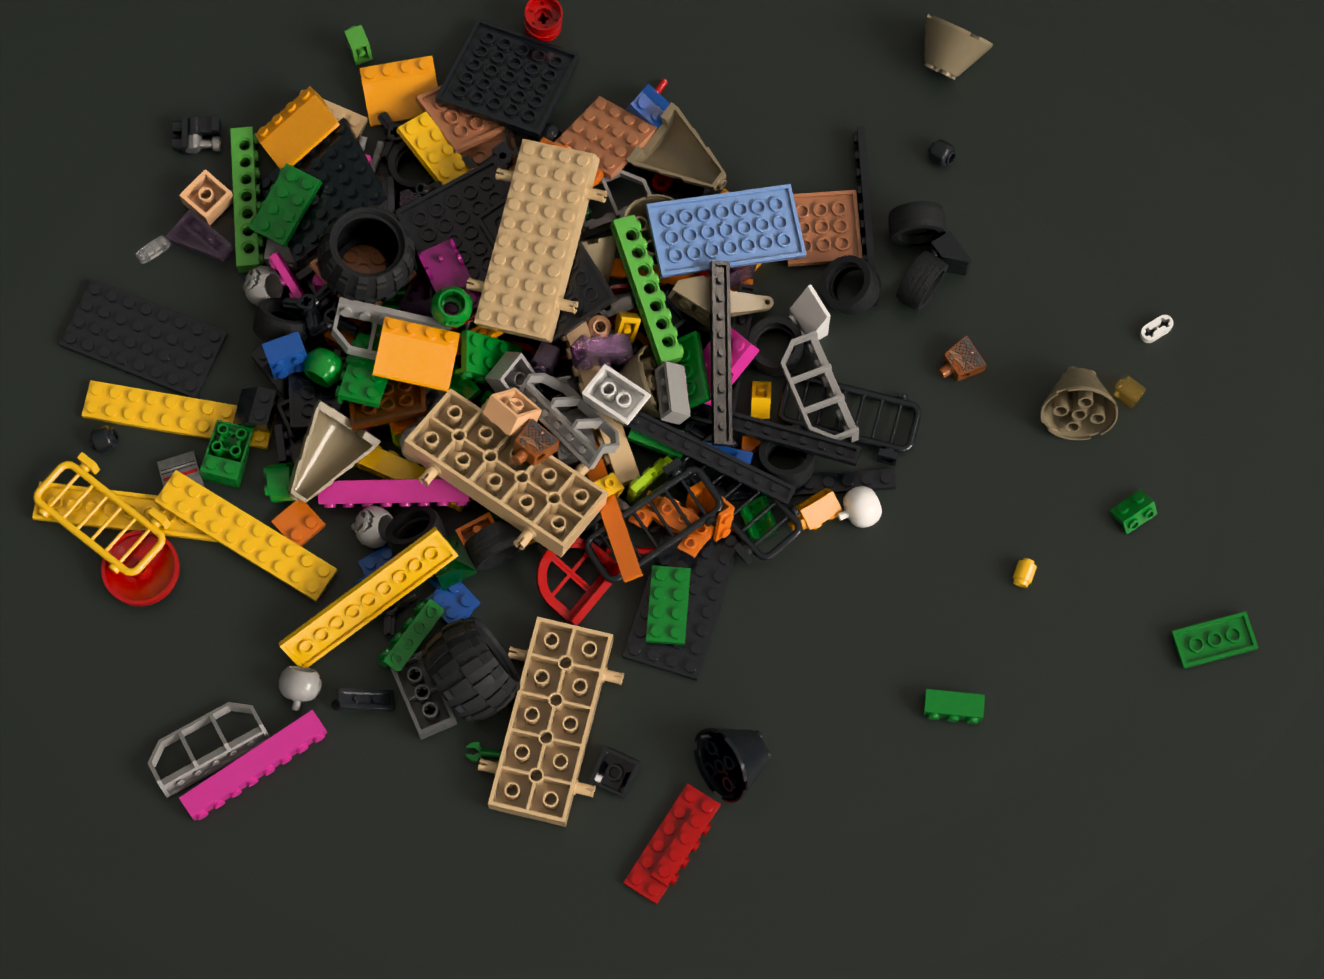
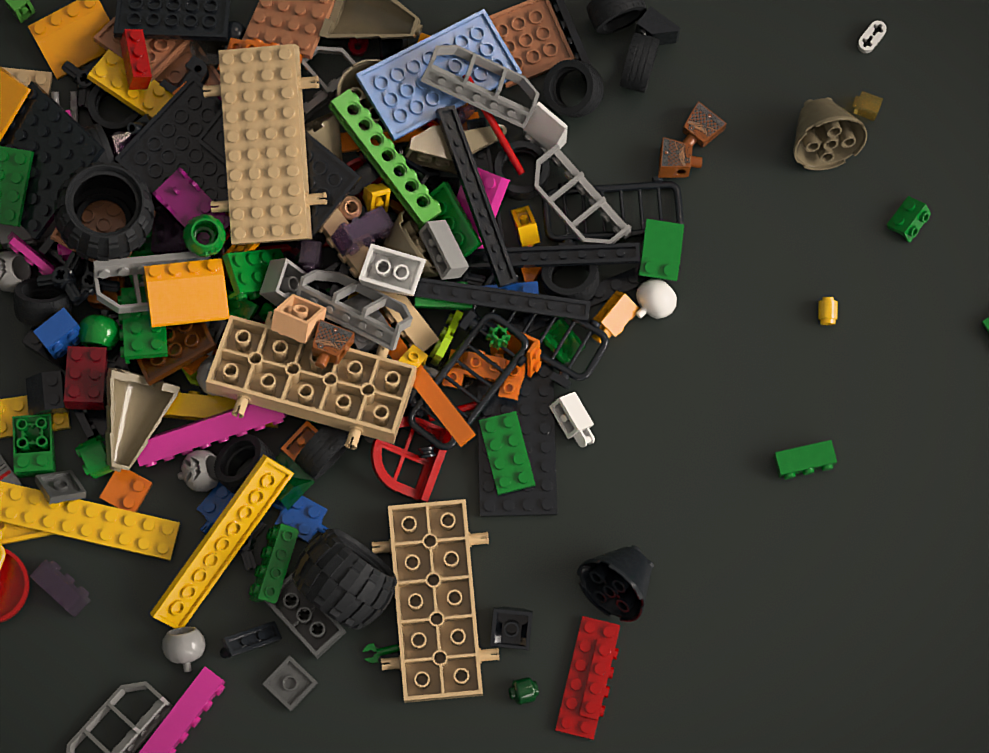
camera: 20 degrees left, 5 degrees up
(205, 592) = (61, 587): none -> clear purple wedge
(237, 498) = (60, 486): none -> dark grey plate
(295, 404) = (86, 378): none -> dark red brick
(387, 753) = (290, 683): none -> dark grey plate
(447, 127) = (135, 59): none -> red brick
(592, 578) = (426, 451): none -> black bush
(606, 834) = (523, 690): none -> dark green head
(694, 496) = (493, 337): none -> green gear
(743, 594) = (573, 419): none -> white brick
(753, 259) = (477, 95): none -> light grey plate
(754, 257) = (502, 139): none -> red bar
(881, 462) = (661, 250): none -> green slope
(927, 383) = (676, 159): none -> dark orange torso

